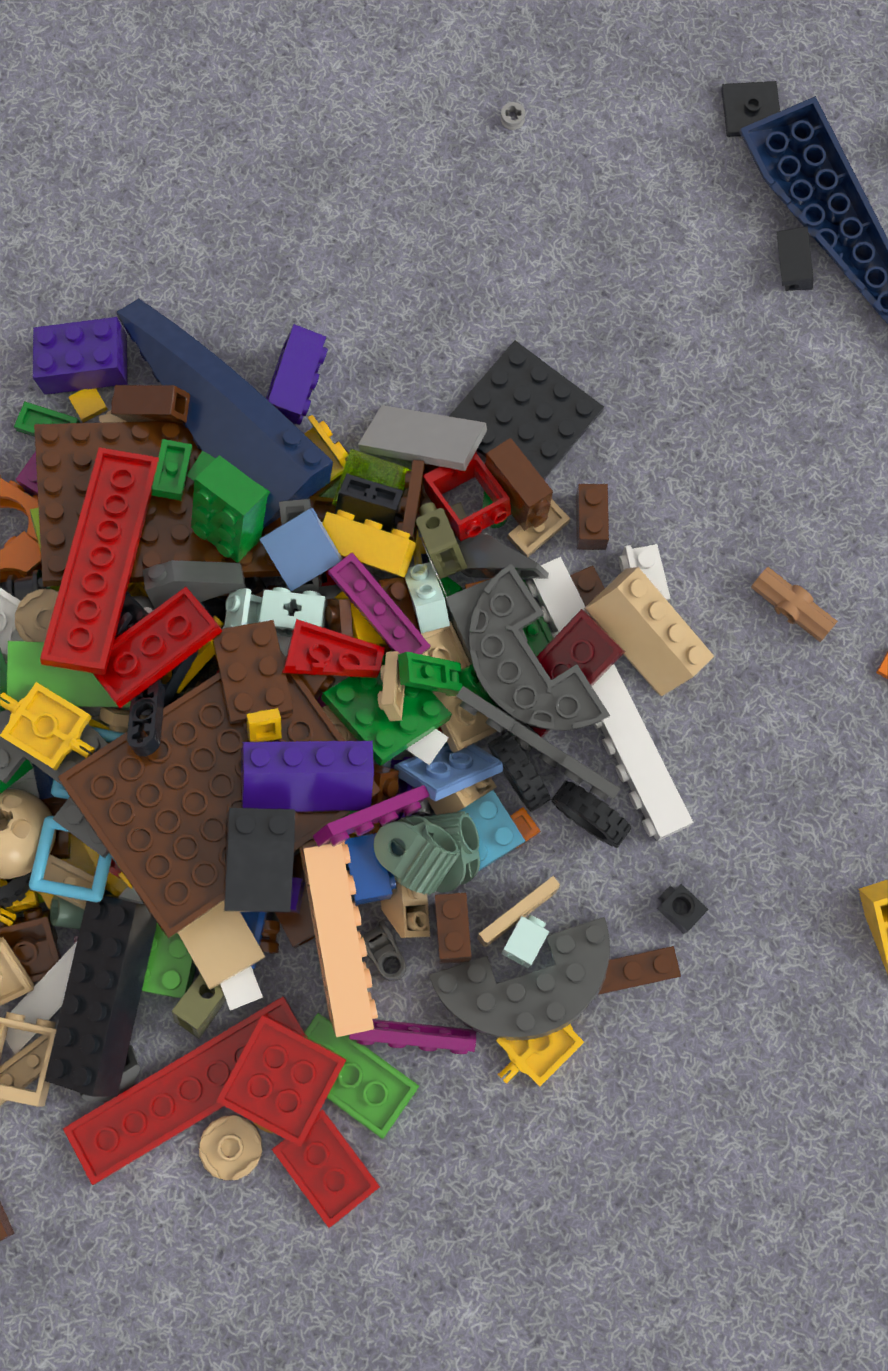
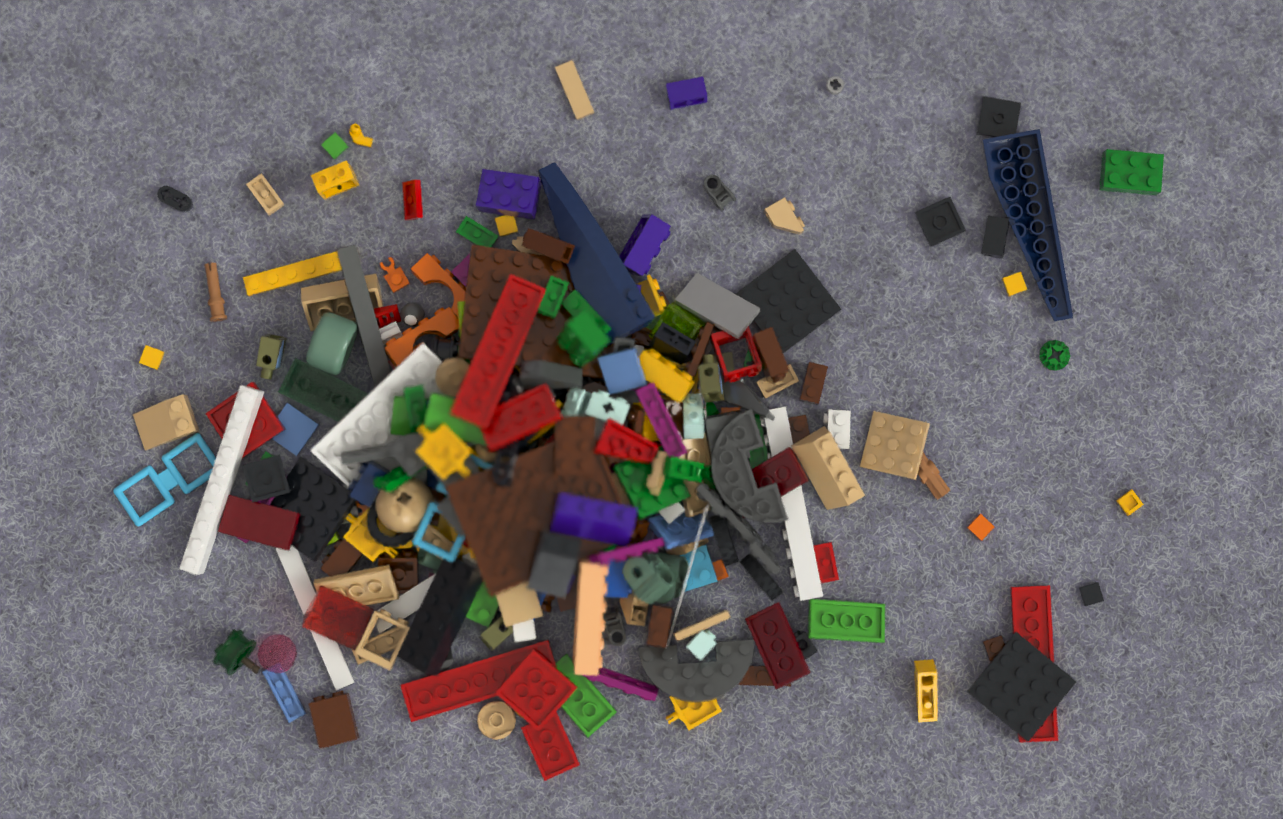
camera: 15 degrees right, 10 degrees up
(147, 202) = (574, 90): none -> tan tile
(264, 725) = (574, 482): yellow plate -> none
(307, 169) = (686, 93): none -> dark purple hinge
(388, 291) = (719, 192): none -> dark grey piece
(477, 834) = (692, 558): none -> white sticker
(487, 301) = (783, 218): none -> tan slope
(644, 916) = (777, 645): none -> dark red tile
(683, 773) = (826, 562): none -> red plate
(711, 258) = (940, 221): none -> black plate
(737, 575) = (894, 445): none -> tan plate
(738, 853) = (846, 621): none -> bright green tile
(840, 317) = (1014, 284): none -> yellow tile

